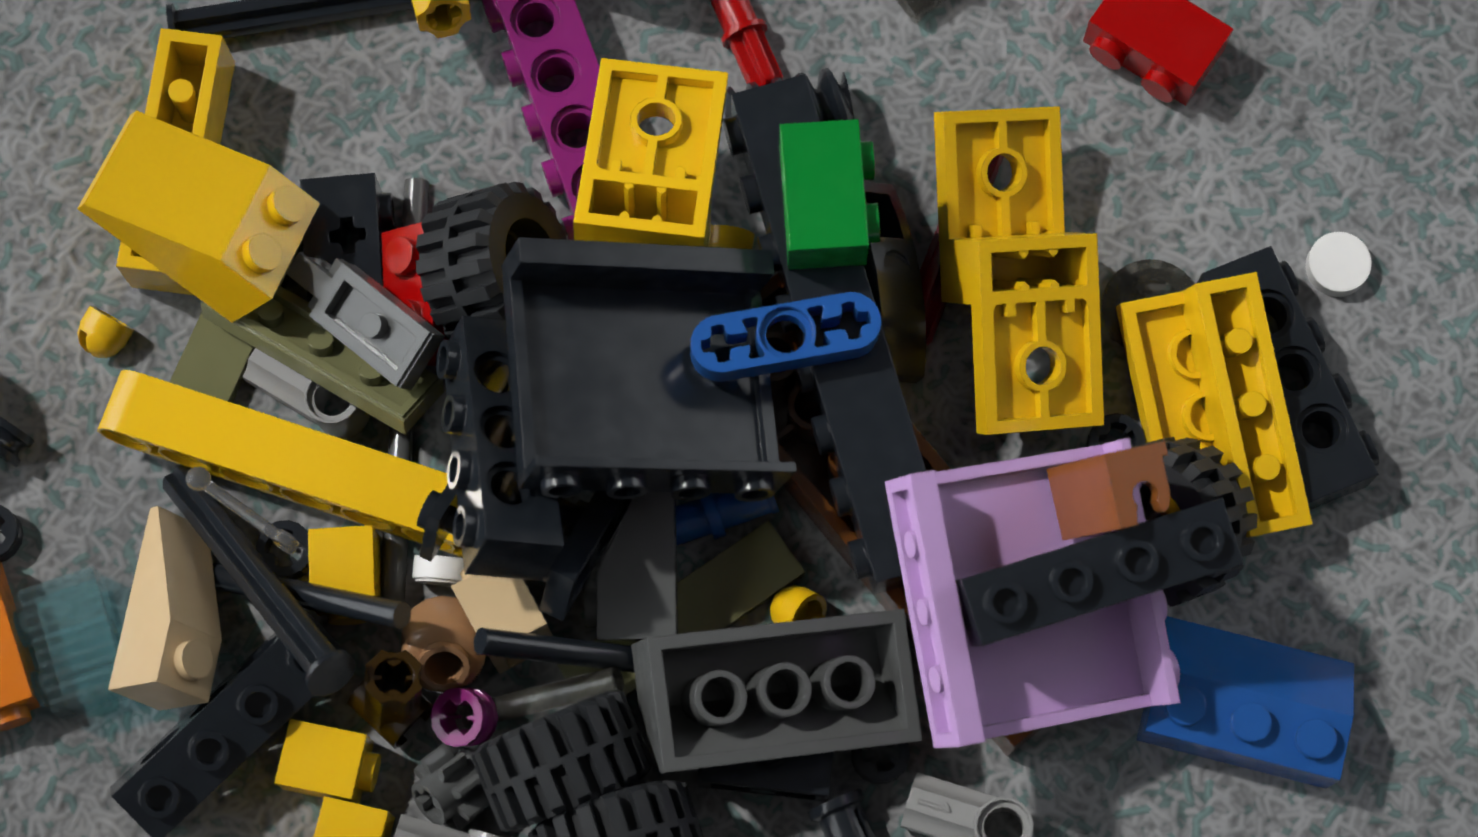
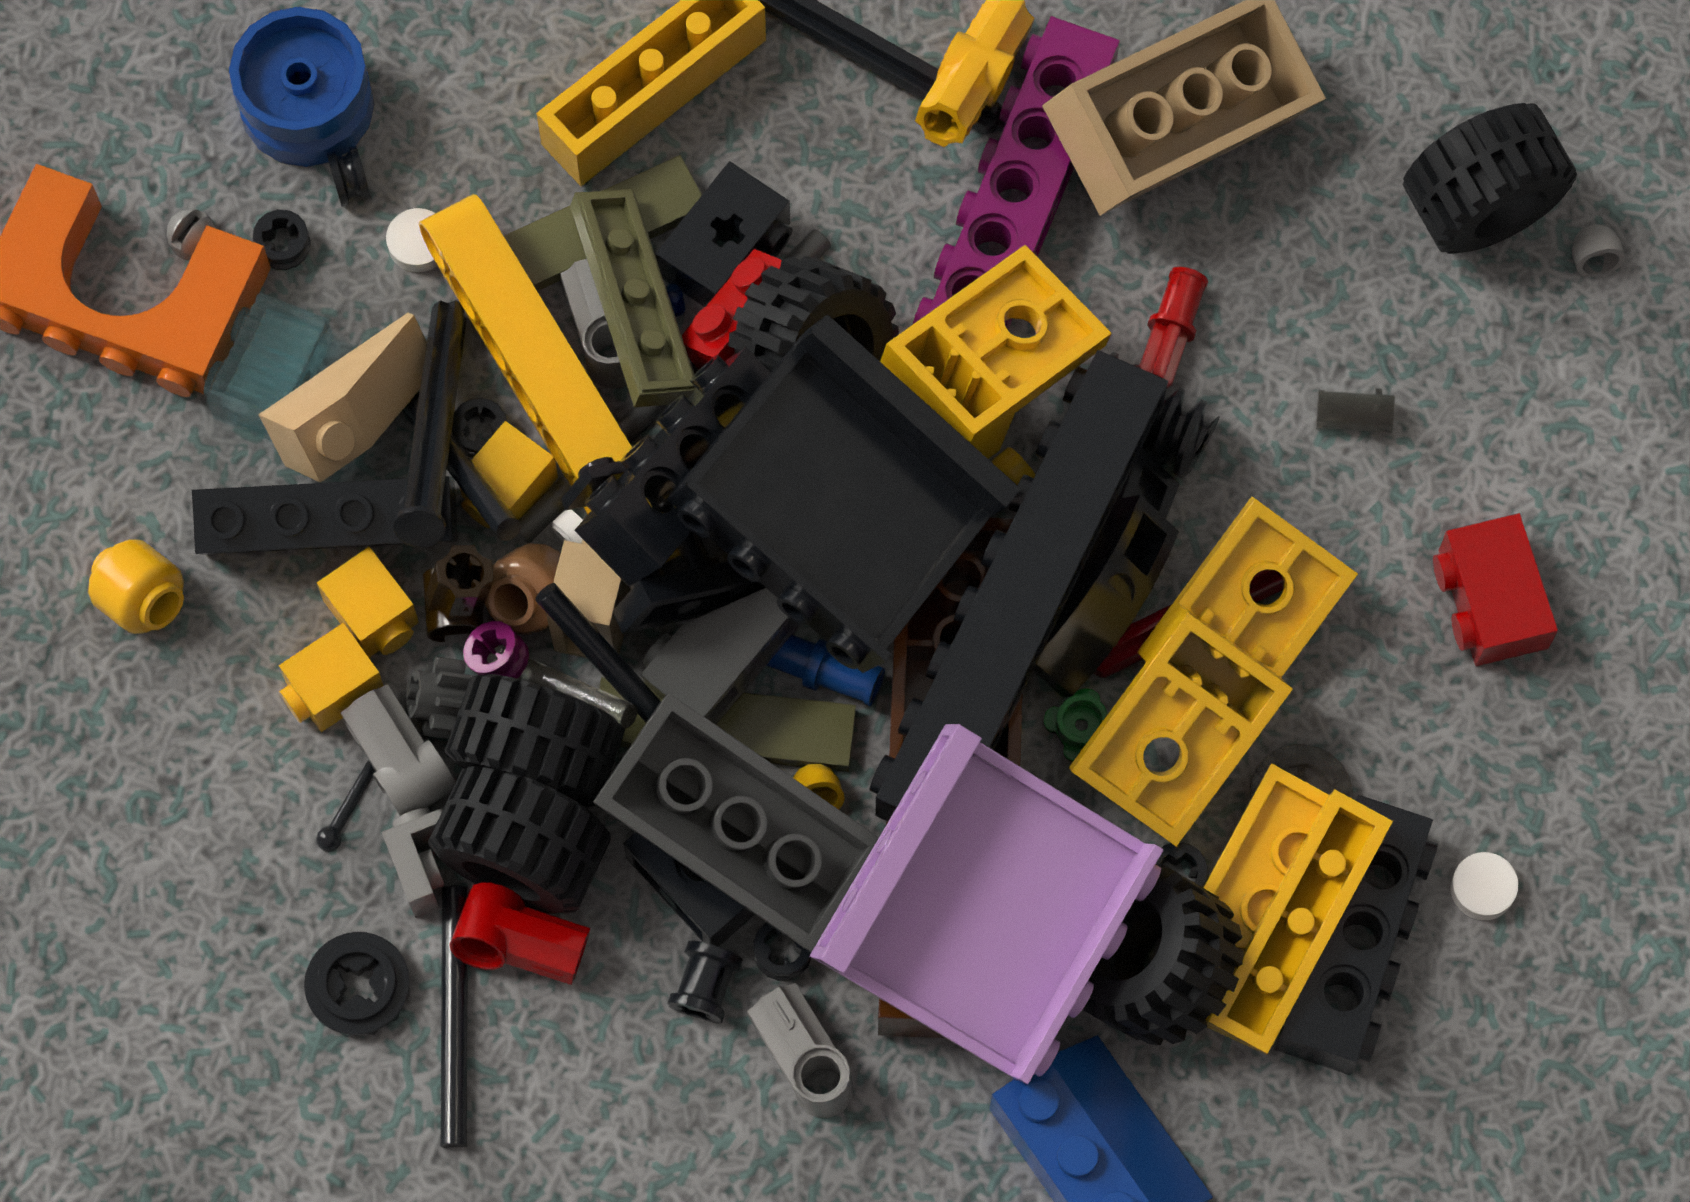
camera: 40 degrees right, 5 degrees down
(95, 452) = (406, 242): none -> white tile
(102, 334) = (488, 161): yellow hinge -> none
(200, 213) = (627, 120): yellow slope -> none
(200, 480) = (460, 321): clear hinge -> none
(367, 318) = (681, 298): hinge -> none
(800, 312) = (1021, 564): blue beam -> none
(825, 194) = (1095, 477): green brick -> none
(931, 402) = (1061, 720): none -> green plate
(1097, 572) = (1040, 921): black brick -> none
(1098, 491) = (1100, 859): dark orange hinge -> none

